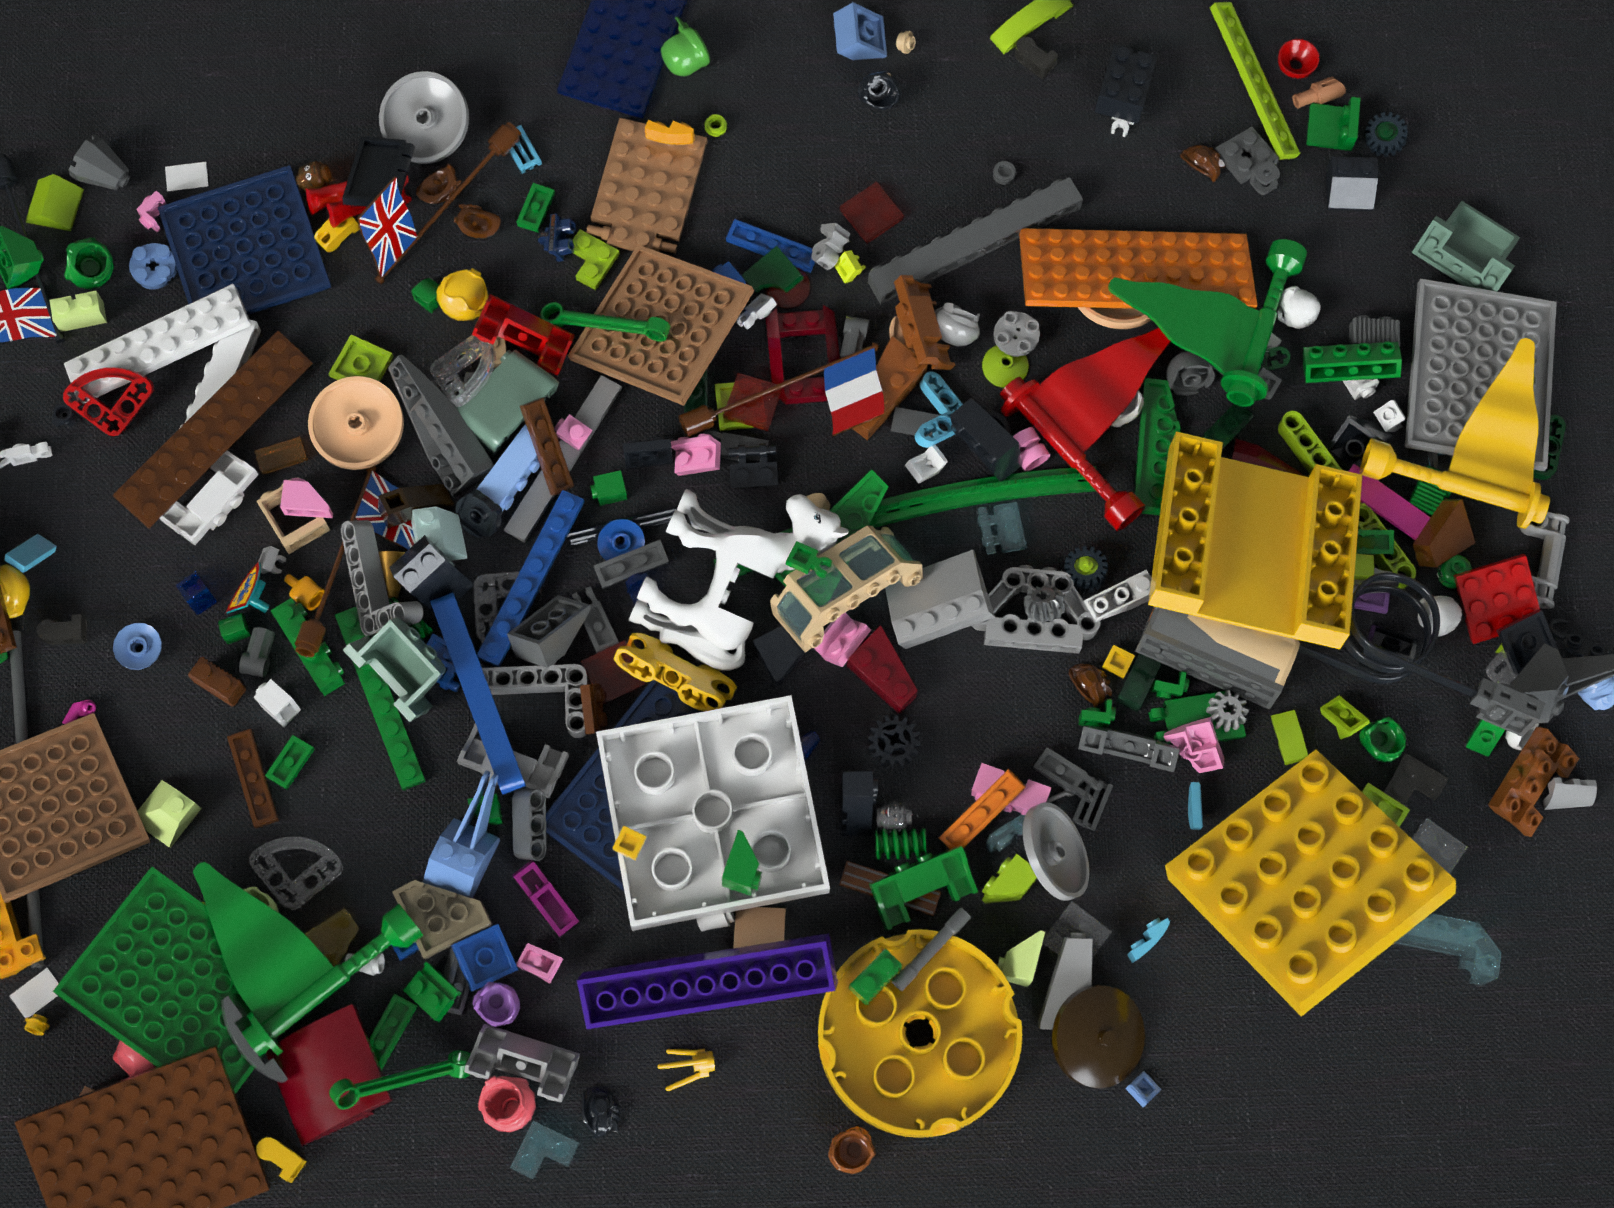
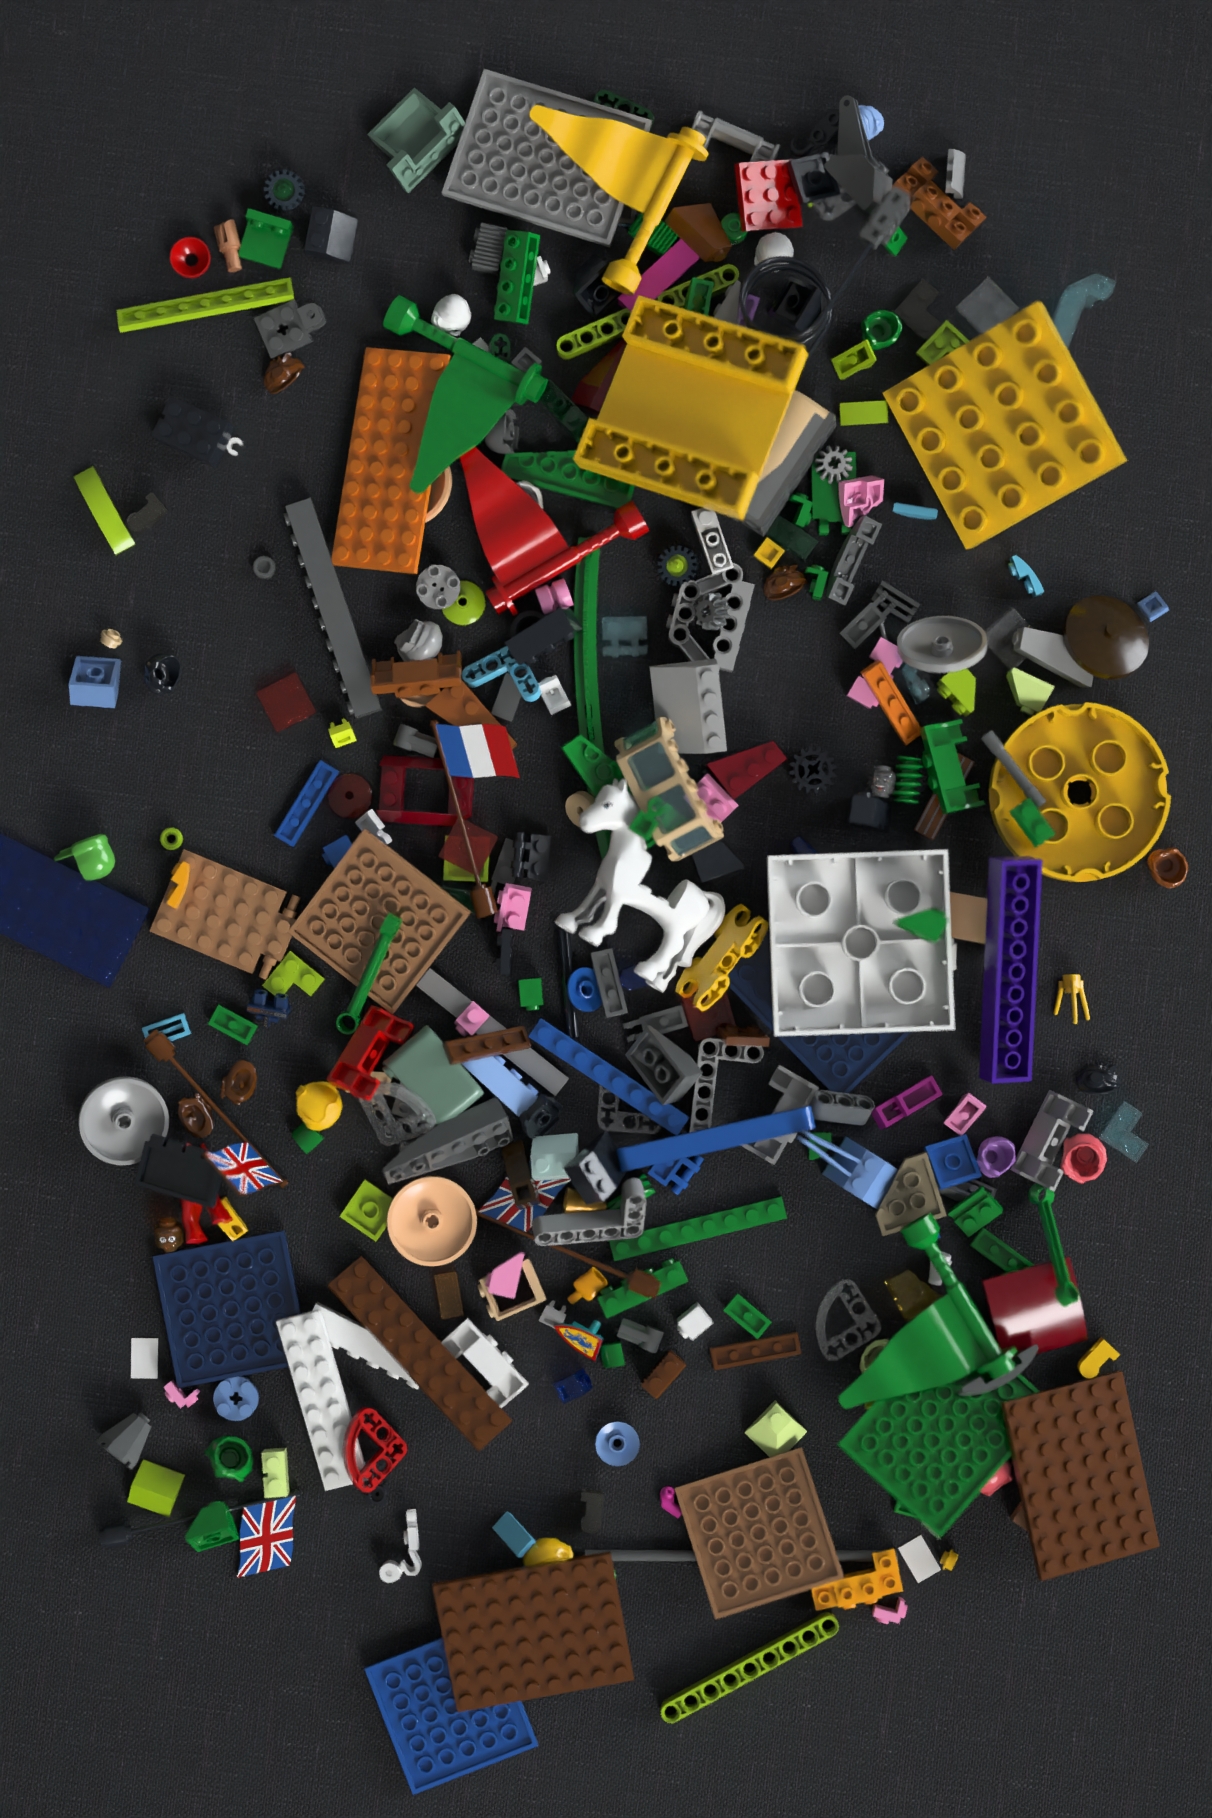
camera: 80 degrees left, 15 degrees up
(402, 663) = (679, 1202): sand green windscreen -> none
(629, 843) = (883, 1020): yellow plate -> none
(773, 271) = (337, 807): dark green tile -> none
(827, 250) = (324, 752): light grey leg -> none
(1364, 566) = (723, 311): lime tile -> none
(1390, 416) = (576, 254): white bracket -> none

